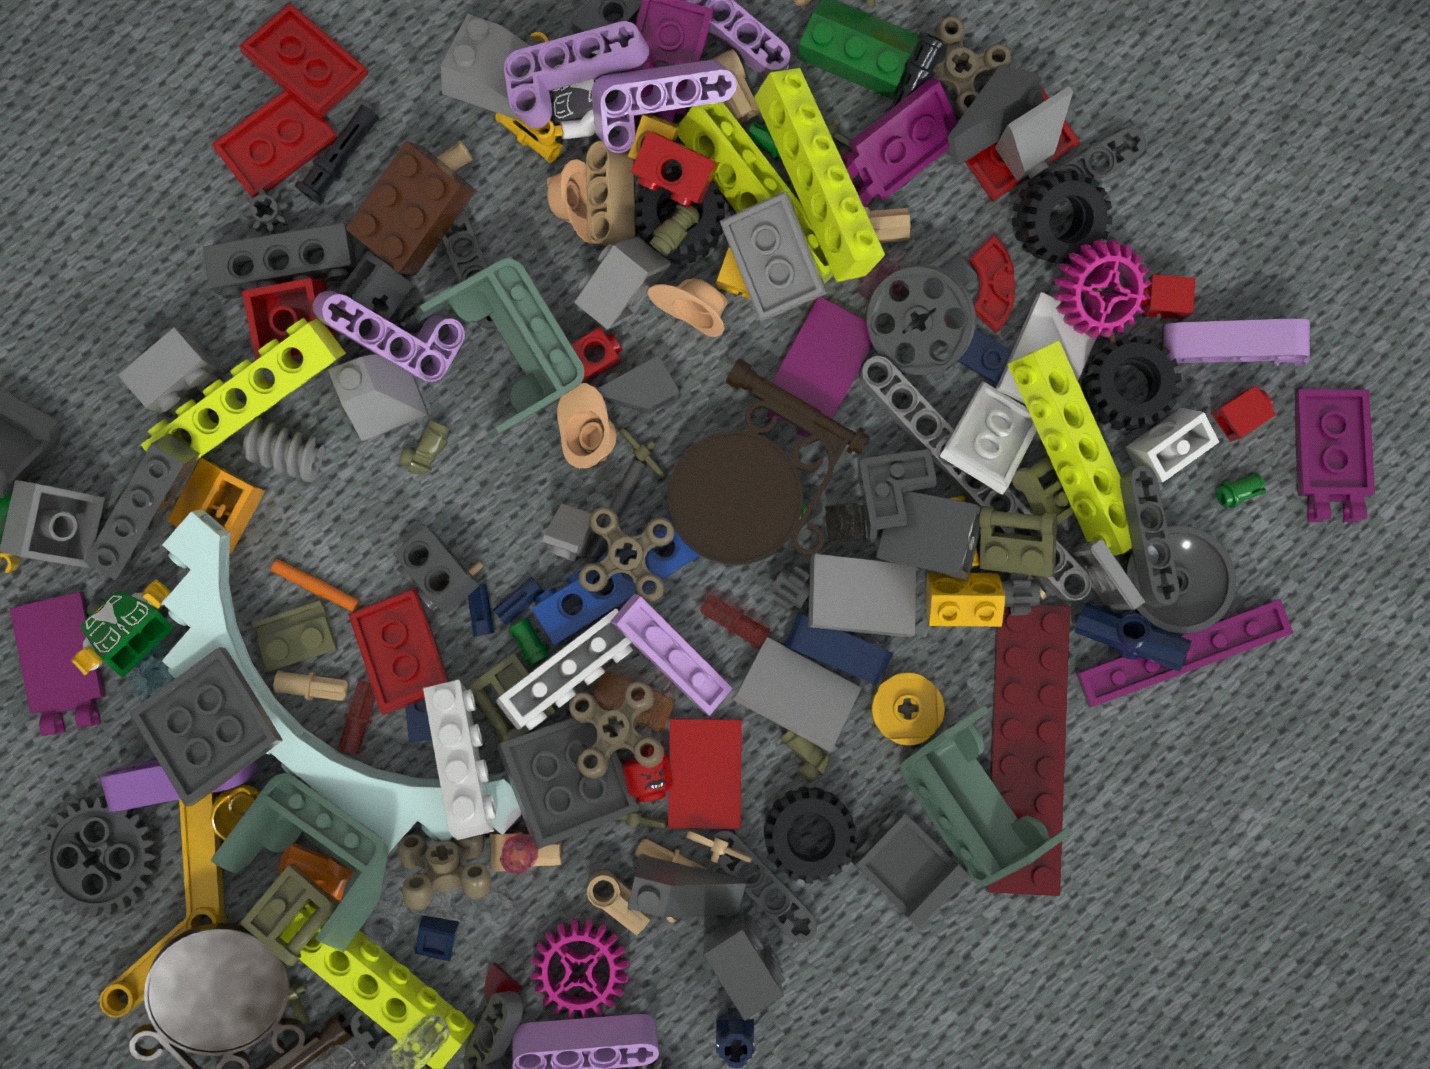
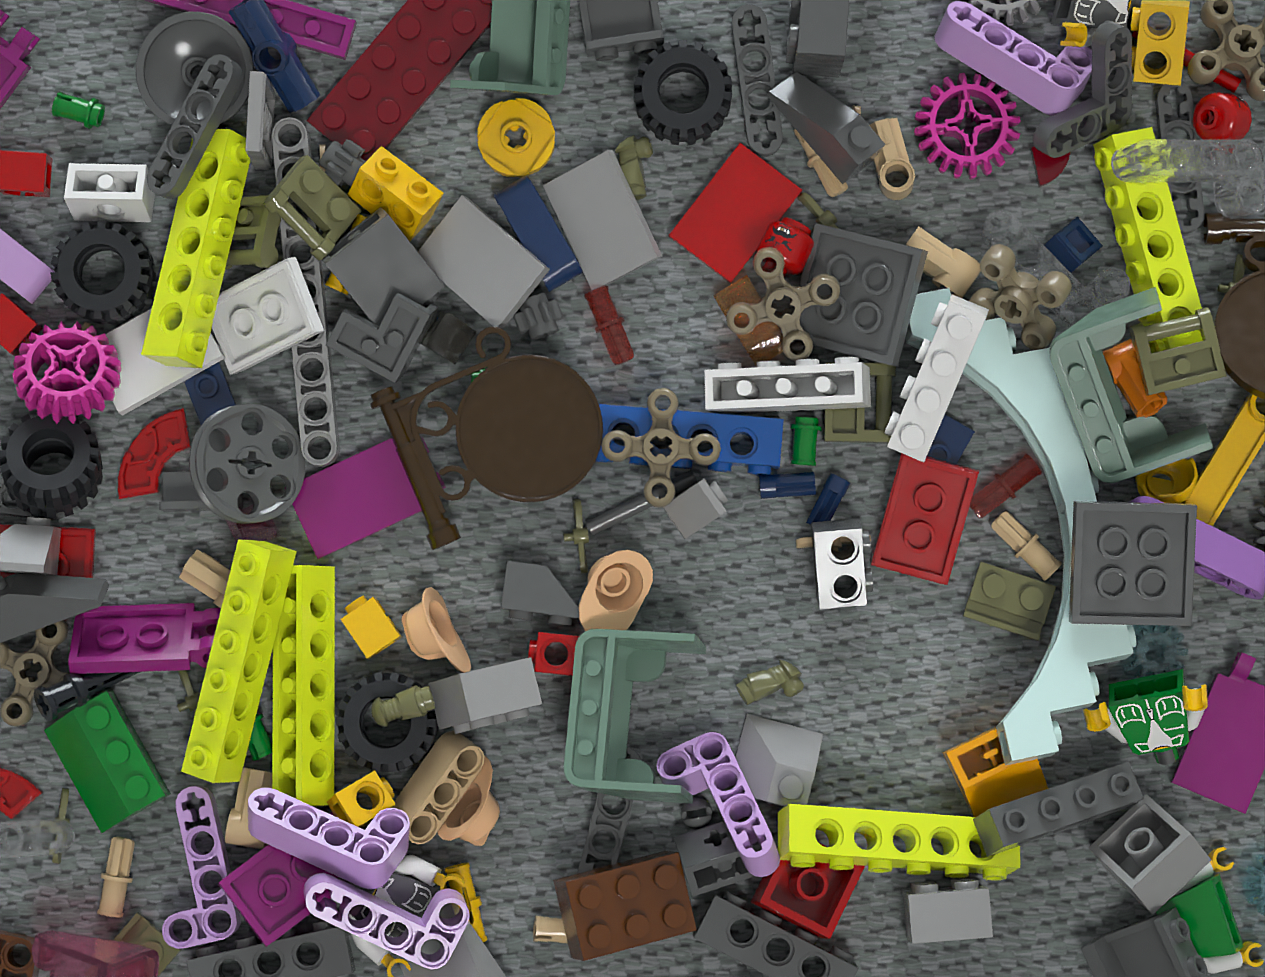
camera: 135 degrees left, 0 degrees up
(281, 451) = (899, 773): light grey piece -> none
(315, 585) = (958, 633): orange piece -> none
(519, 842) = (935, 266): clear pink bush -> none
(671, 654) = (686, 333): lavender plate -> none
(696, 168) = (362, 779): red brick -> none
(719, 847) = (769, 139): tan piece -> none
(773, 256) = (335, 615): light grey tile -> none

